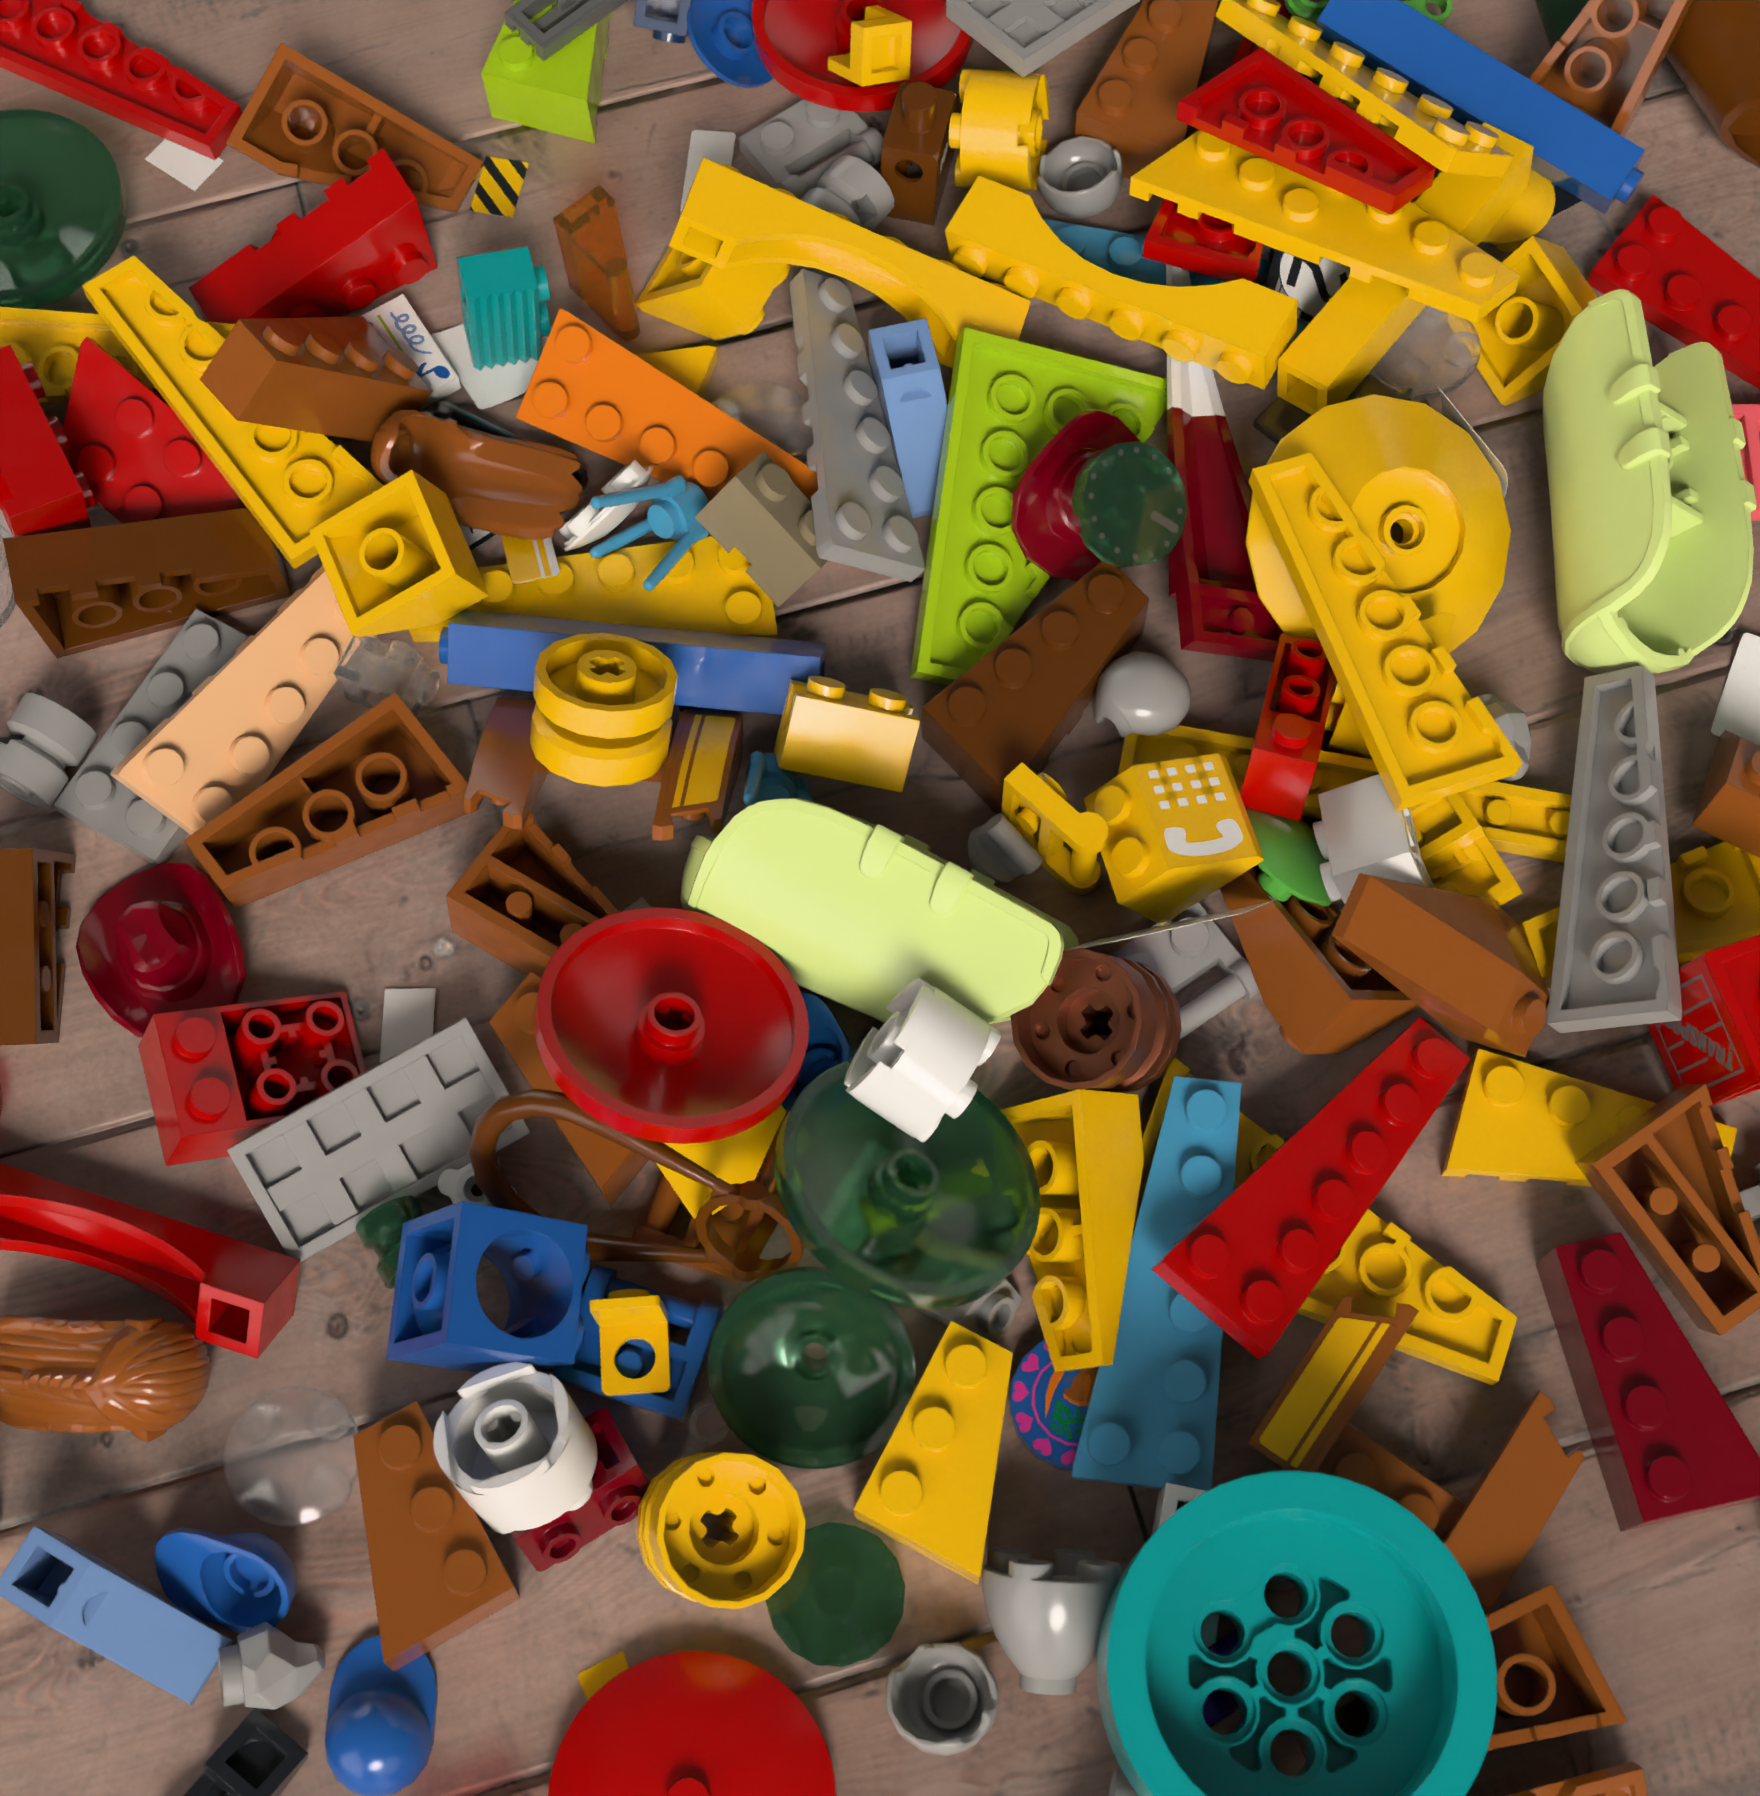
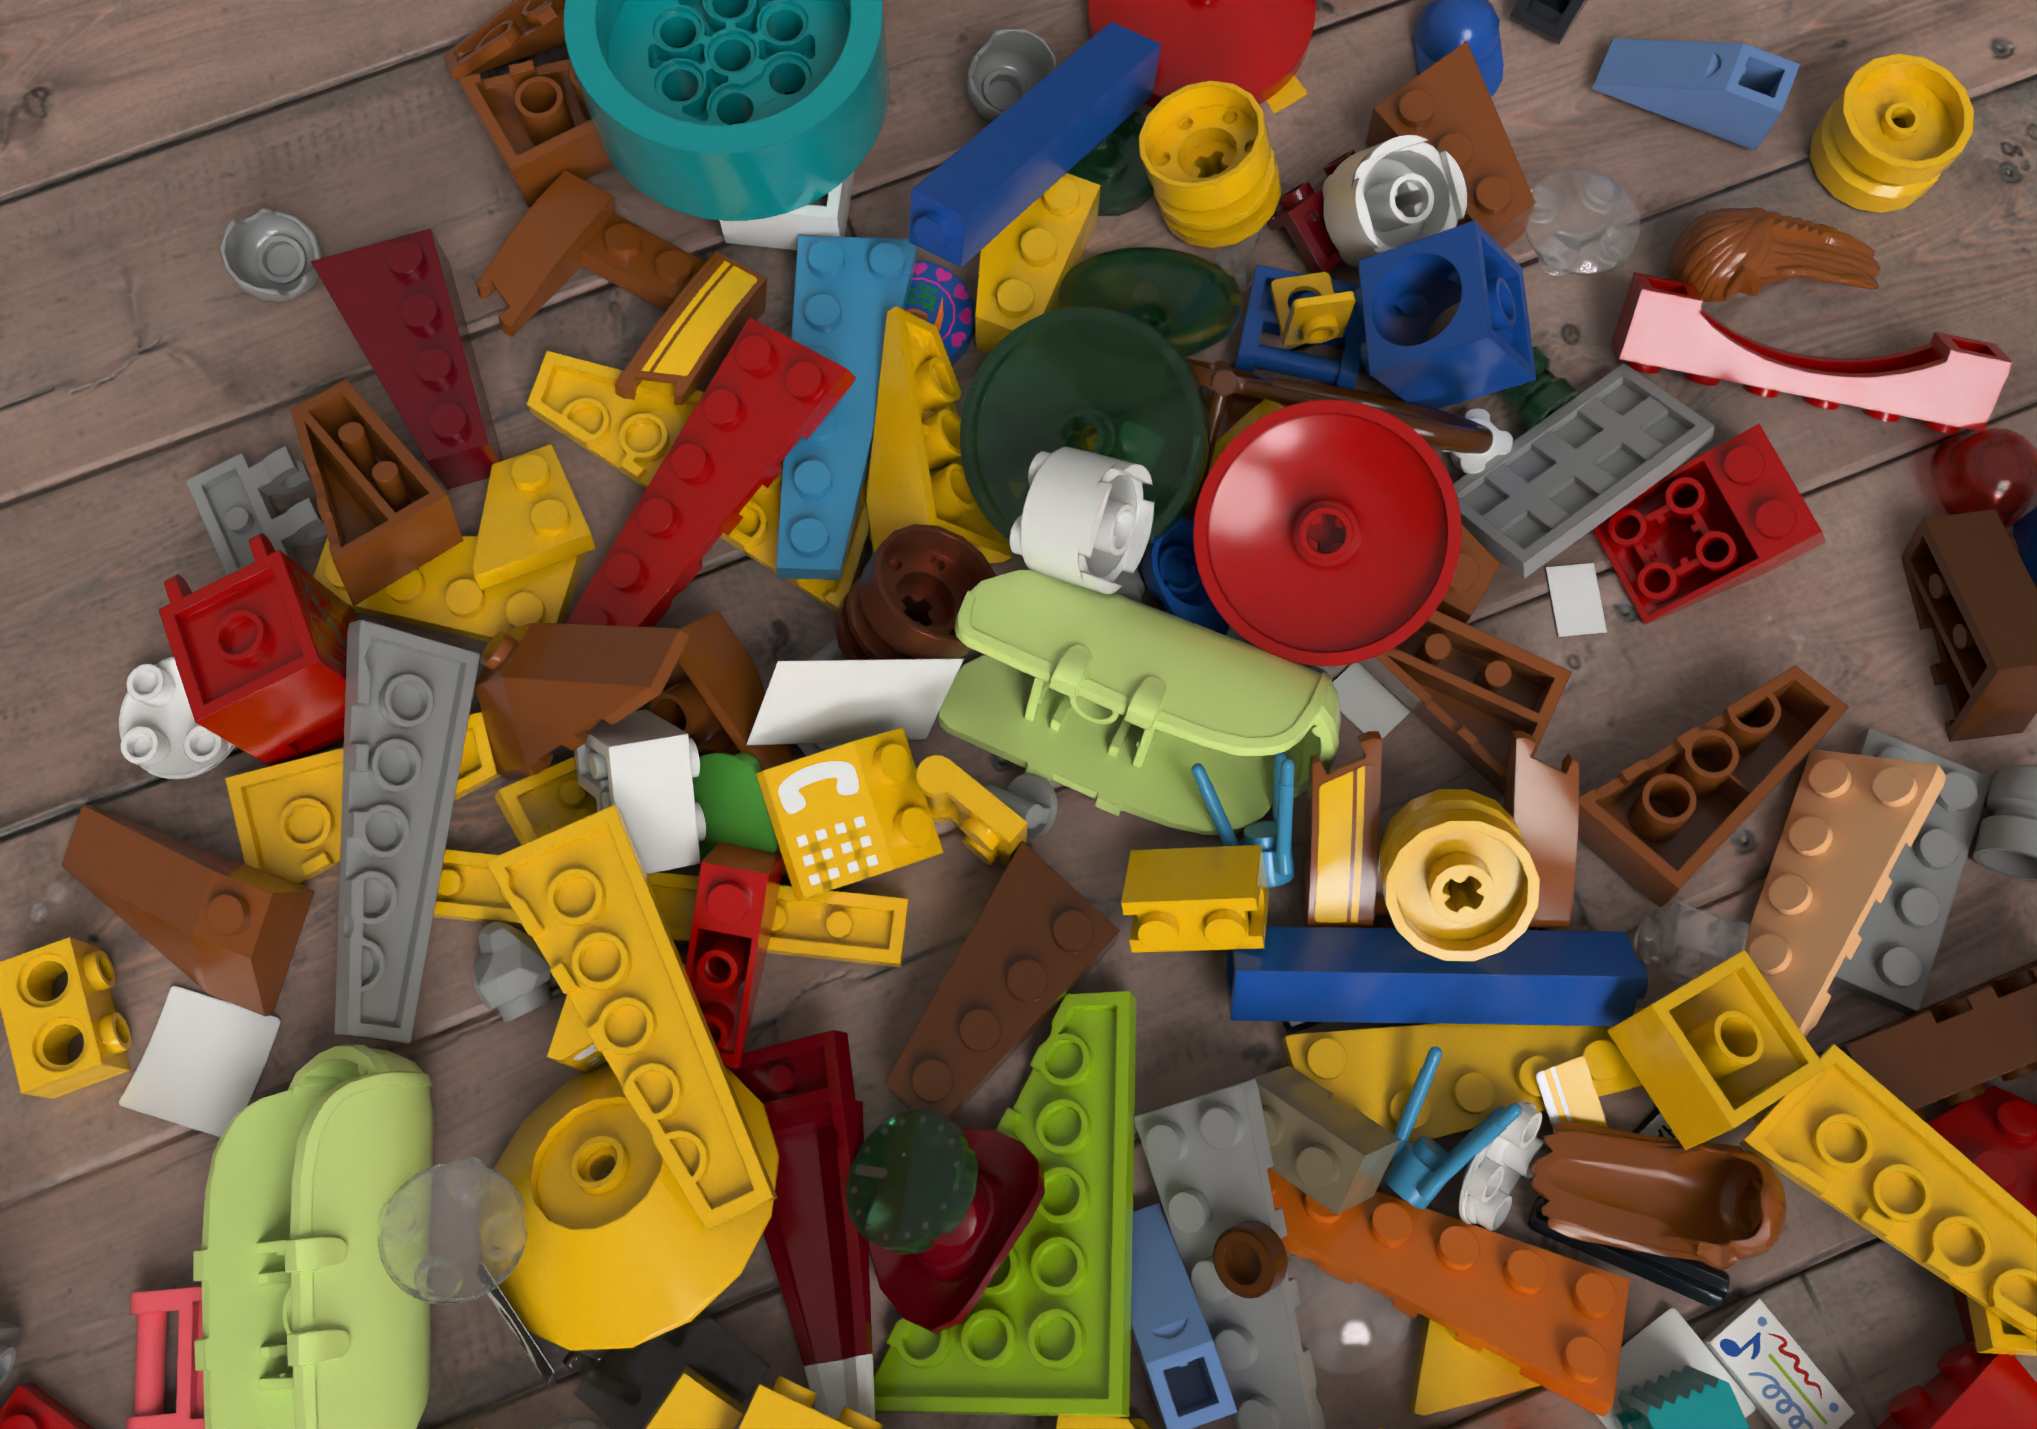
camera: 170 degrees right, 5 degrees up
(160, 946) = (1841, 632): dark red hat -> none
(226, 1578) = (1598, 123): blue cap -> none
(267, 1668) = (1558, 58): light grey rock -> none
(314, 376) = (1875, 1263): dark orange wedge -> none
(842, 428) = (1250, 1259): none -> reddish brown tile
(924, 1545) = (1032, 144): none -> blue brick
(1048, 1612) = (919, 135): light grey piece -> none
(1141, 695) = (886, 985): light grey hair -> none
(1506, 1188) = (528, 519): none -> yellow wing
(1529, 486) = (452, 1232): none -> clear dish

